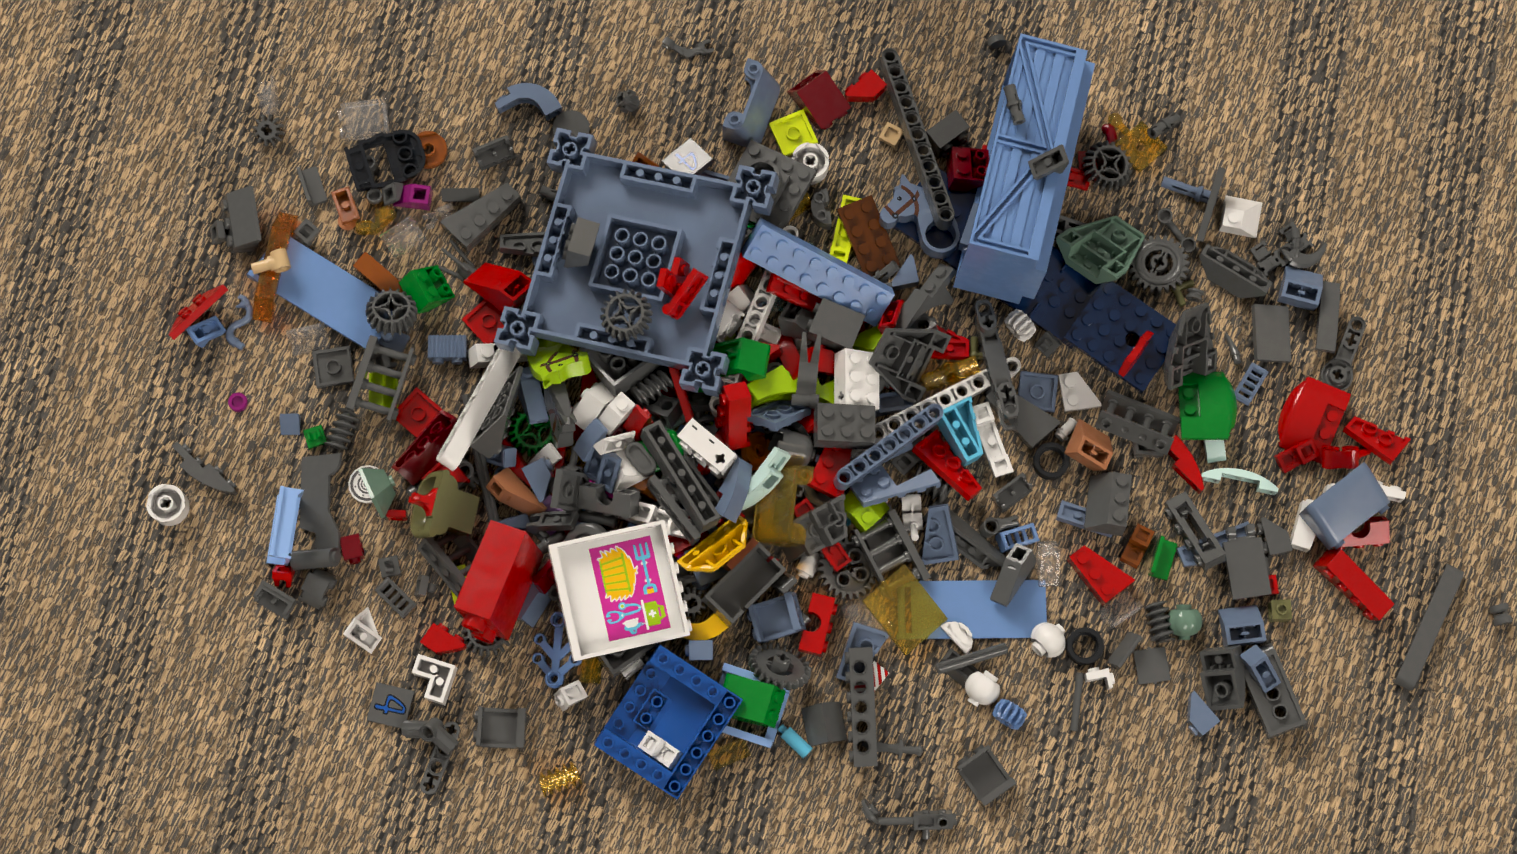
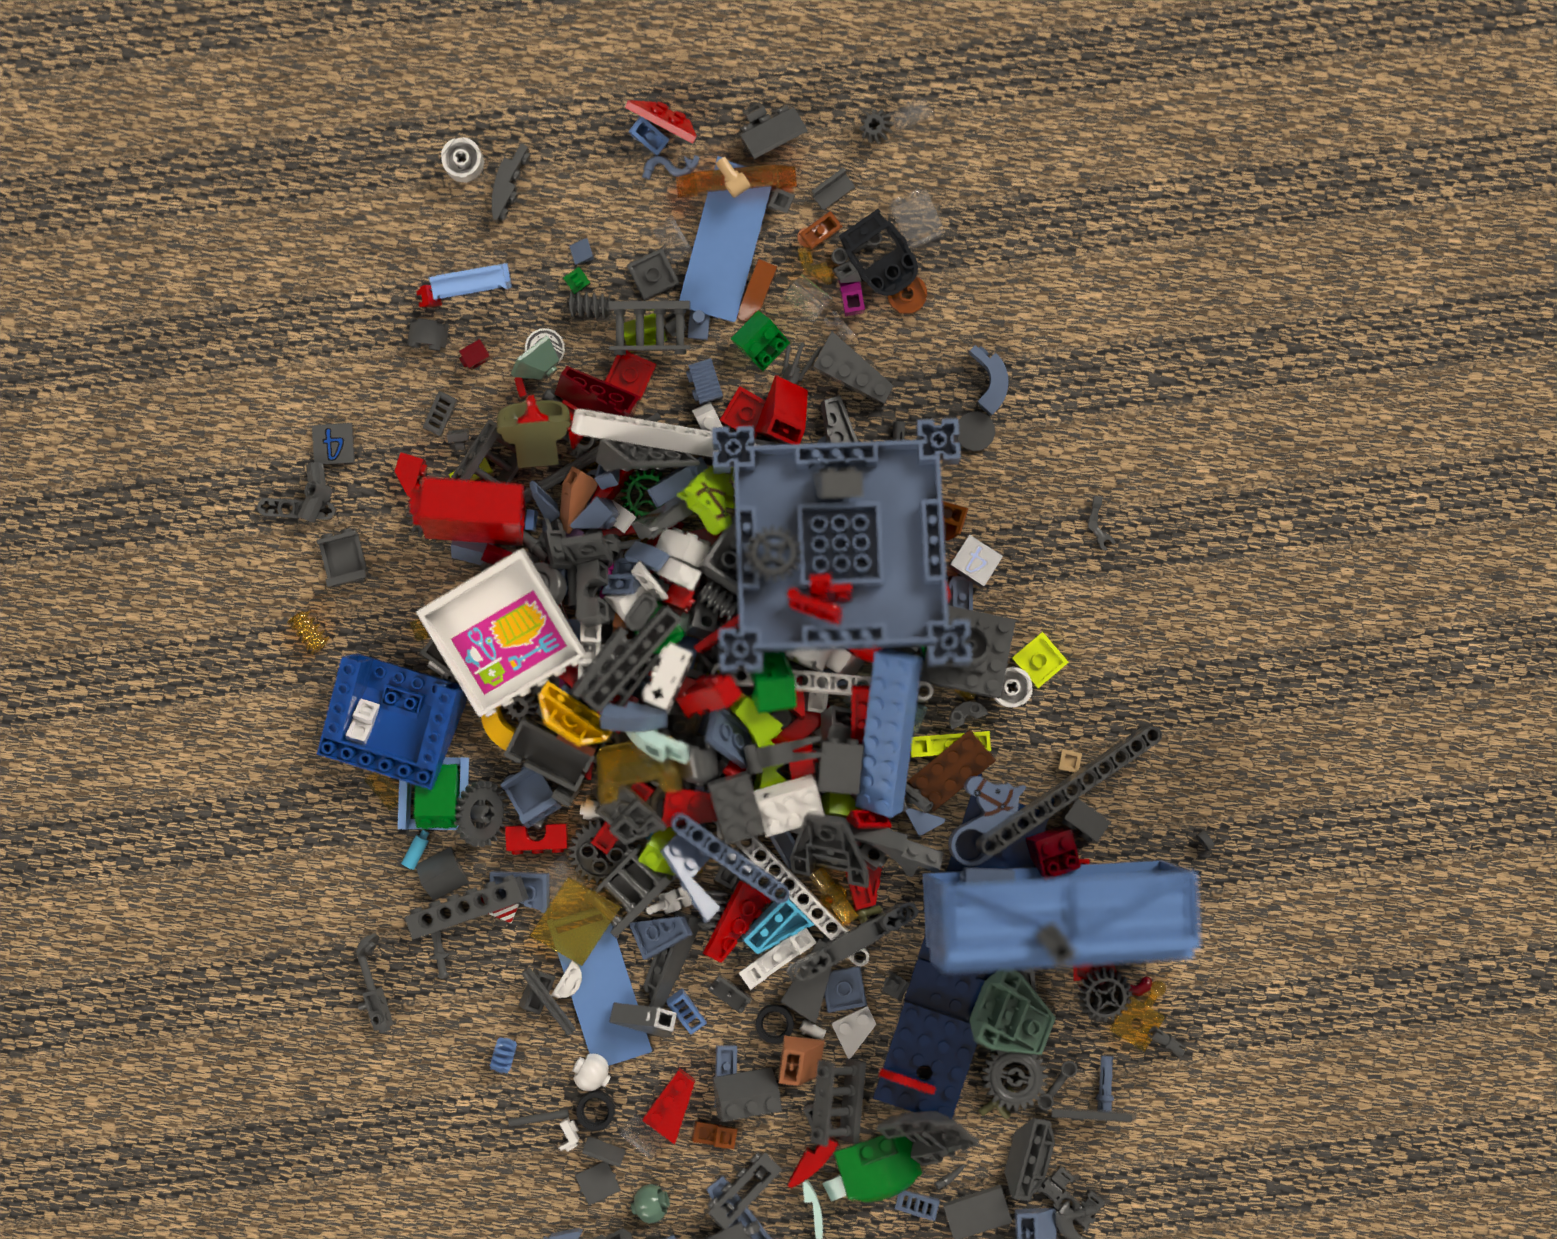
camera: 80 degrees right, 10 degrees up
(238, 402) = (588, 192): magenta tile -> none
(274, 600) = (403, 296): dark grey hinge -> none
(316, 513) = (496, 308): dark grey door -> none
(363, 631) = (396, 393): white slope -> none
(379, 312) = (715, 296): dark grey gear -> none
(389, 566) = (469, 397): dark grey tile -> none
(440, 676) = (375, 482): white brick -> none
(460, 194) = (868, 342): dark grey slope -> none
(494, 153) = (923, 361): dark grey hinge -> none
(556, 654) = (430, 588): medium blue plant -> none
(570, 695) = (394, 615): white bracket -> none
(627, 101) = (1021, 480): dark grey gear -> none
(699, 650) = (472, 730): sand blue brick -> none
(752, 123) = (1049, 617): sand blue windscreen -> none
(759, 443) = (679, 729): dark orange plate -> none
(820, 99) = (1084, 676): dark red slope -> none
(866, 89) = (1111, 722): red slope -> none
(982, 688) = (522, 1020): white plant -> none
(984, 775) = (437, 1048): dark grey panel -> none
(998, 525) = (692, 989): dark grey pin -> none
(1014, 104) = (1112, 889): dark grey pin -> none
(1020, 325) = (905, 953): white gear -> none
(1047, 563) = (668, 1050): clear slope -> none
(1158, 622) = (641, 1179): dark grey piece -> none
(1162, 559) = (708, 1164): green panel -> none
(1194, 295) = (994, 1122): dark grey bush -> none
(1240, 216) = (1094, 1147): white slope -> none

